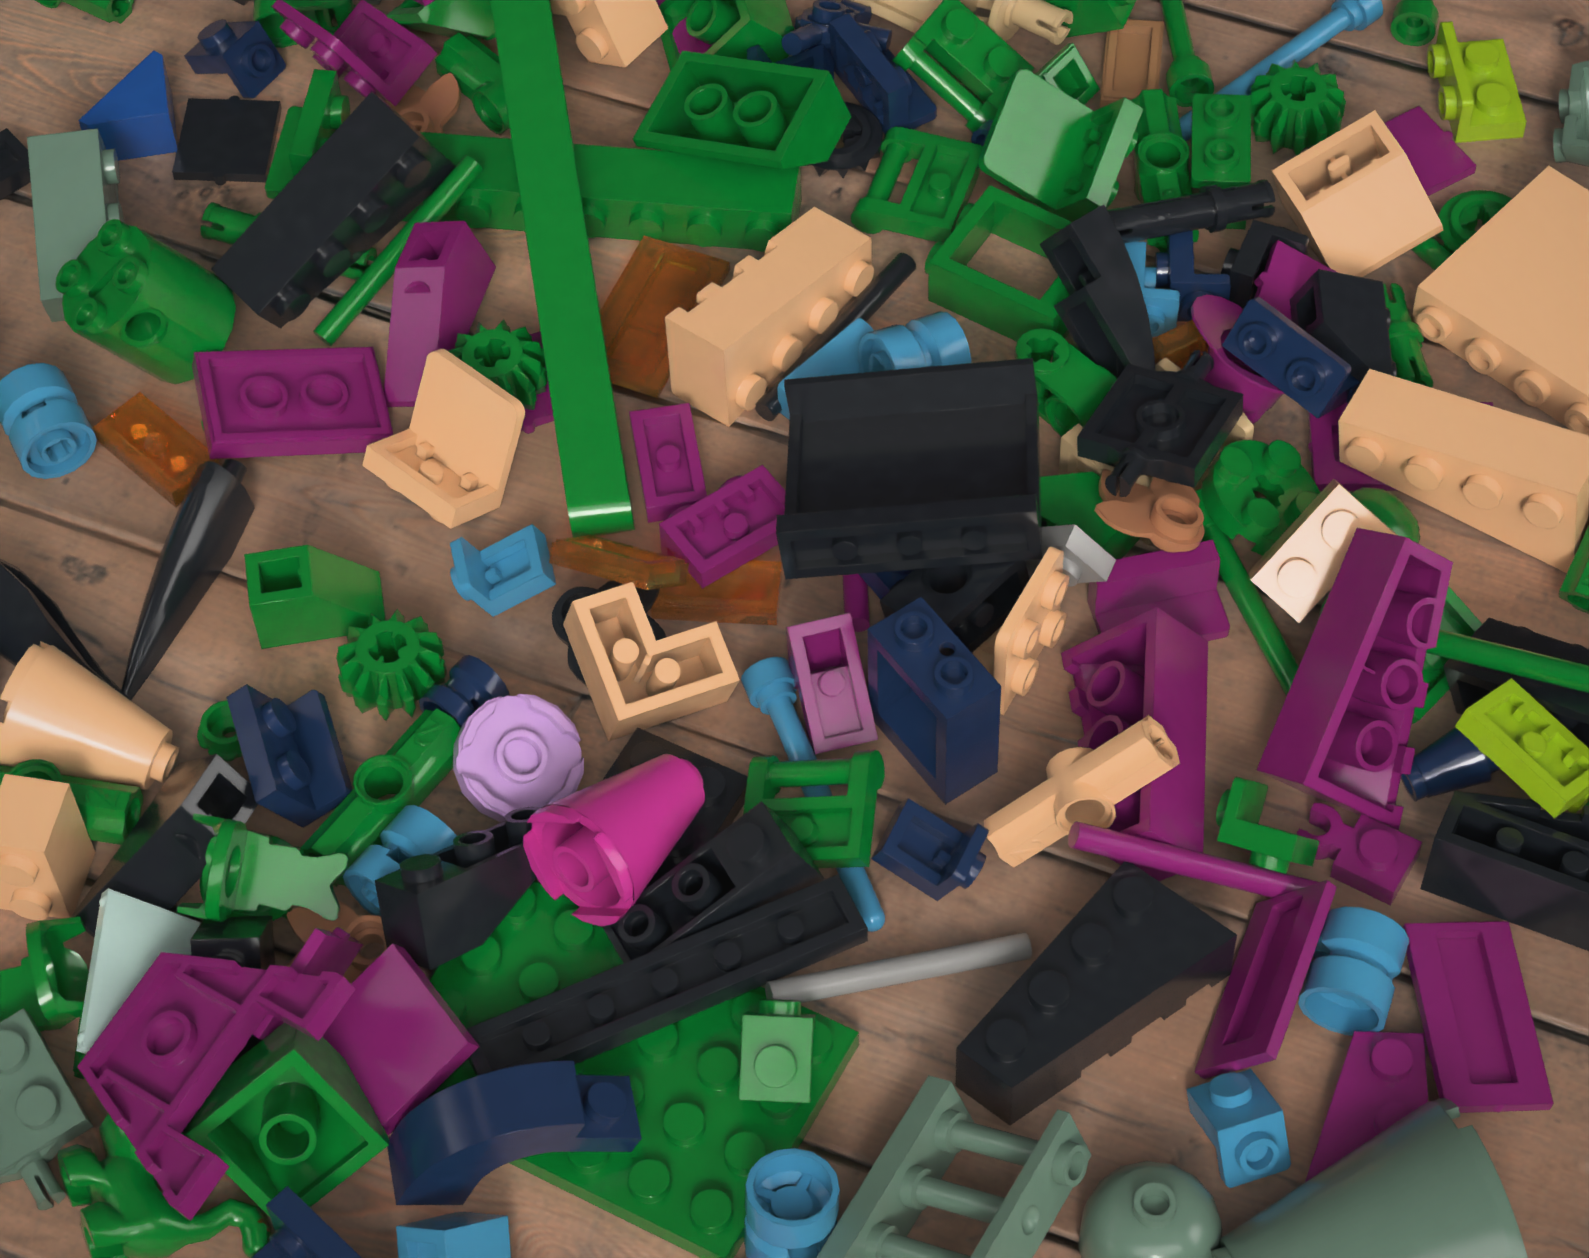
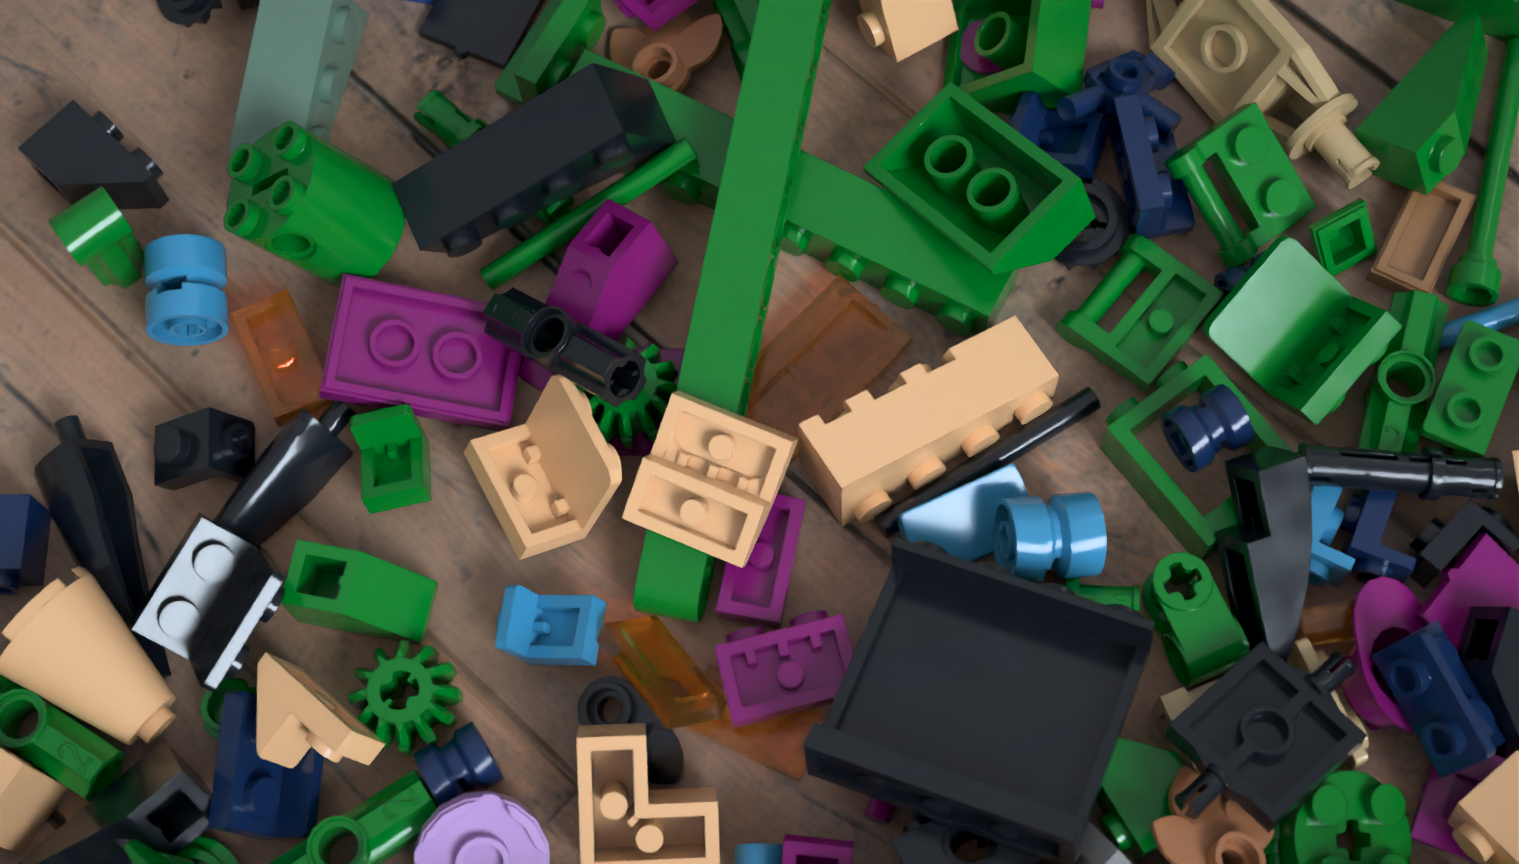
camera: 25 degrees right, 15 degrees up
(108, 540) = (203, 447): none -> black bracket
(179, 637) = (211, 600): none -> bracket
(296, 487) = (392, 458): none -> green bracket
(310, 681) = (301, 714): none -> light nougat slope
(420, 328) = (565, 346): none -> black piece
(601, 392) = (709, 478): none -> light nougat slope
(1008, 230) = (1205, 428): none -> dark blue wheel

